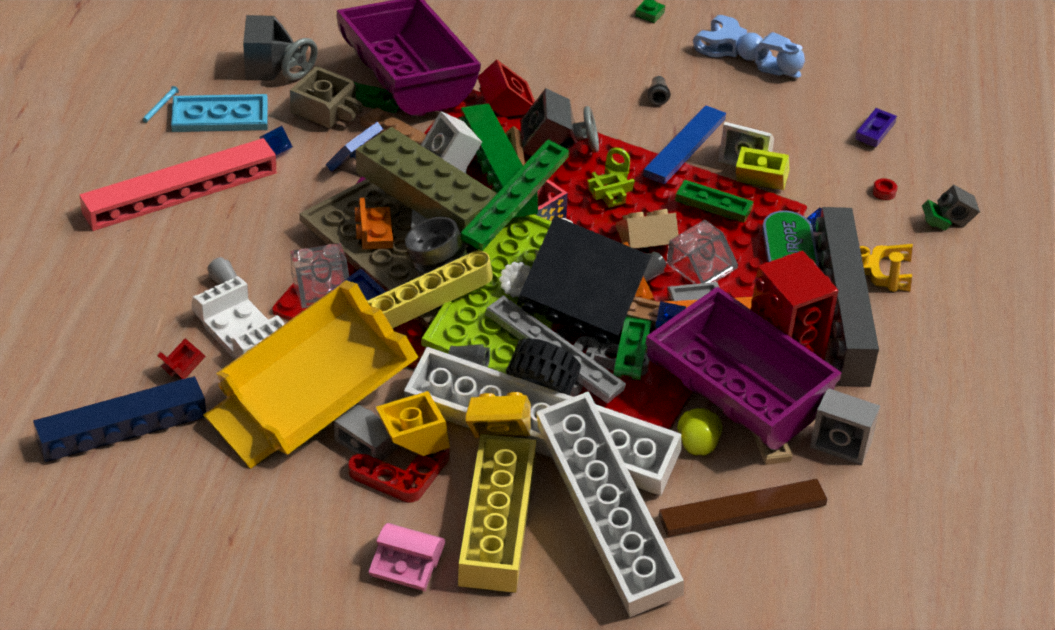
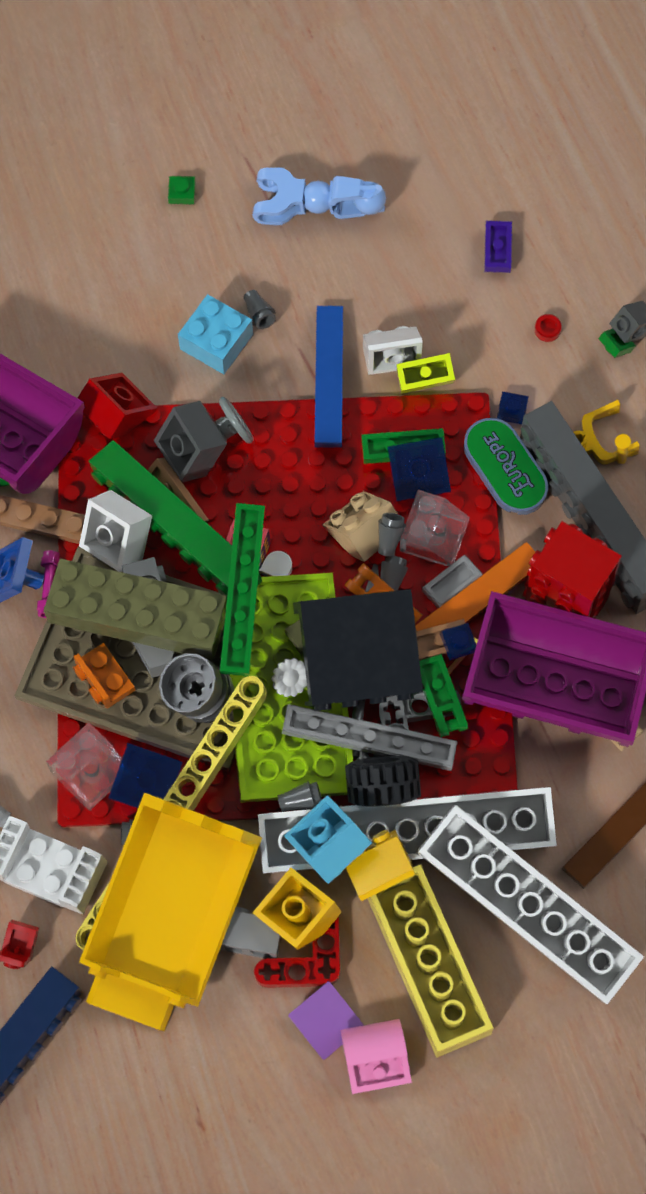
camera: 25 degrees left, 25 degrees up
(380, 509) = (322, 1019): none -> medium lavender sticker
(469, 374) = (328, 839): none -> medium azure brick
(614, 88) = (215, 334): none -> medium azure brick
(615, 177) = (287, 465): lime piece -> none
(662, 232) = (390, 532): none -> dark grey cone
(699, 431) = (548, 752): neon yellow hair -> none
(719, 208) = (419, 467): none -> clear blue plate

